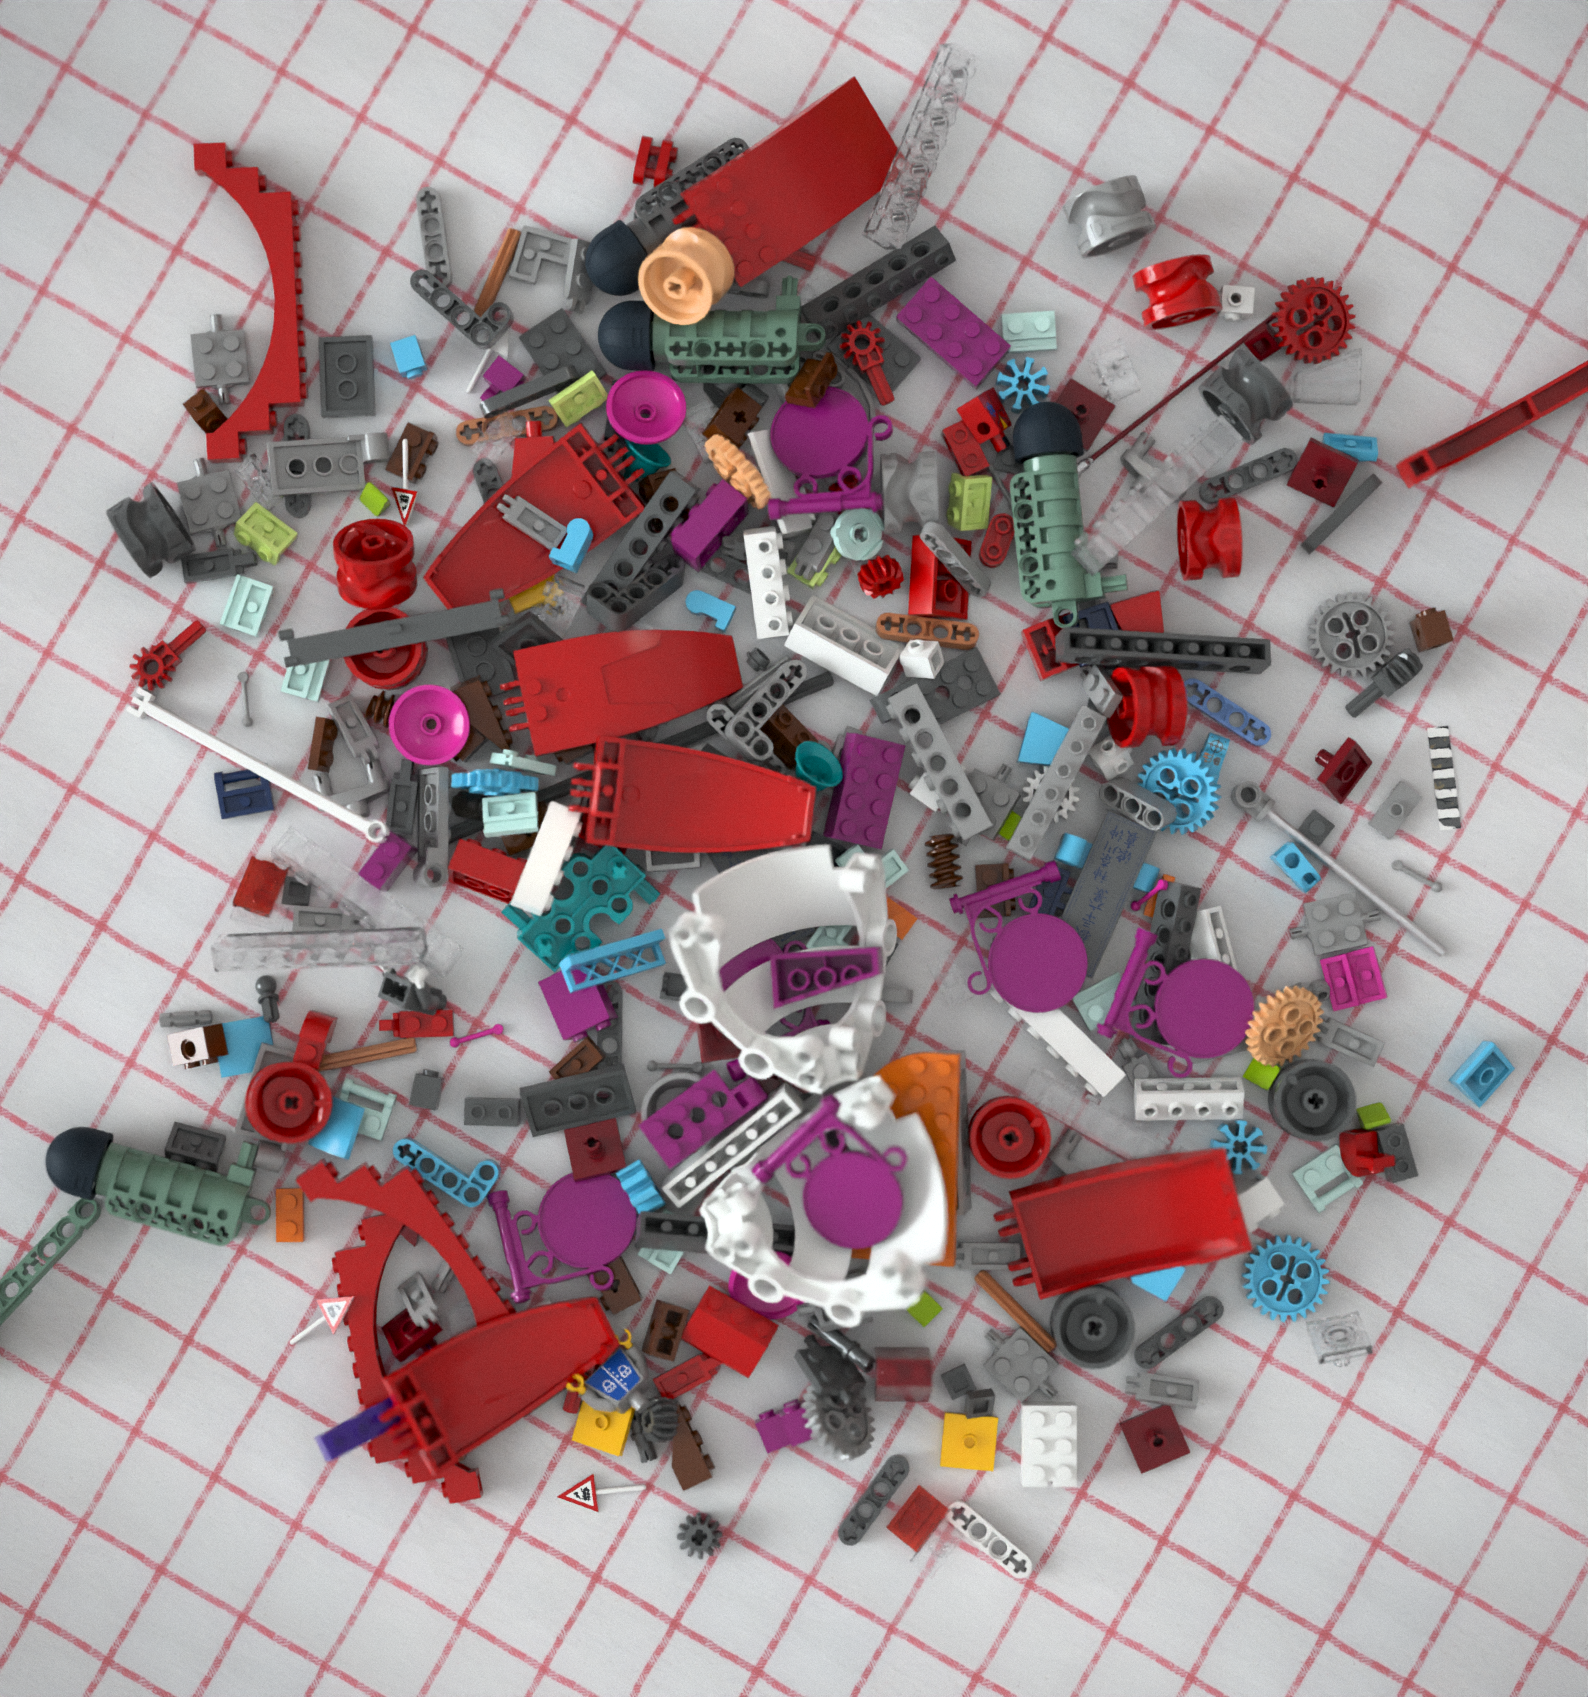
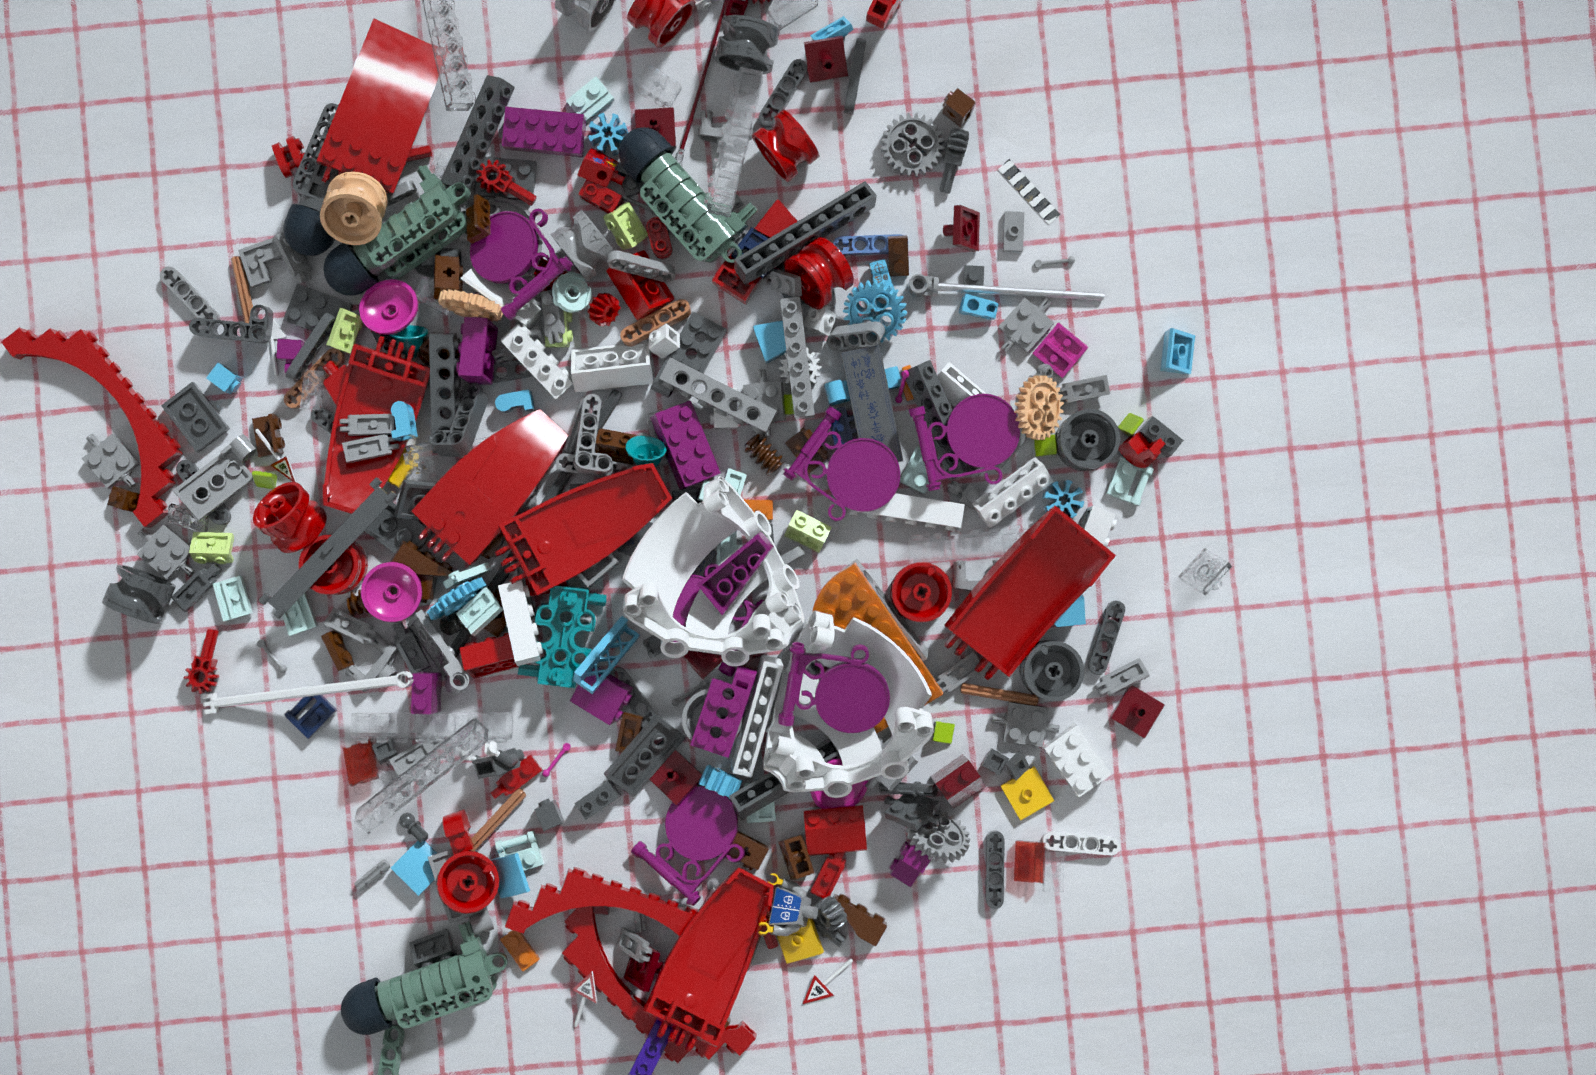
camera: 30 degrees left, 0 degrees up
(197, 1045) = (389, 887): brick -> none
(442, 1167) = (591, 855): medium azure beam -> none
(514, 548) = (368, 448): none -> light grey hinge
(691, 1529) = (897, 967): dark grey gear -> none
(757, 660) = (565, 412): dark grey plate -> none
(931, 981) = (807, 531): none -> yellowish green bracket
(1247, 747) = (898, 256): none -> reddish brown plate
(1309, 1285) = (1130, 564): medium azure gear -> none

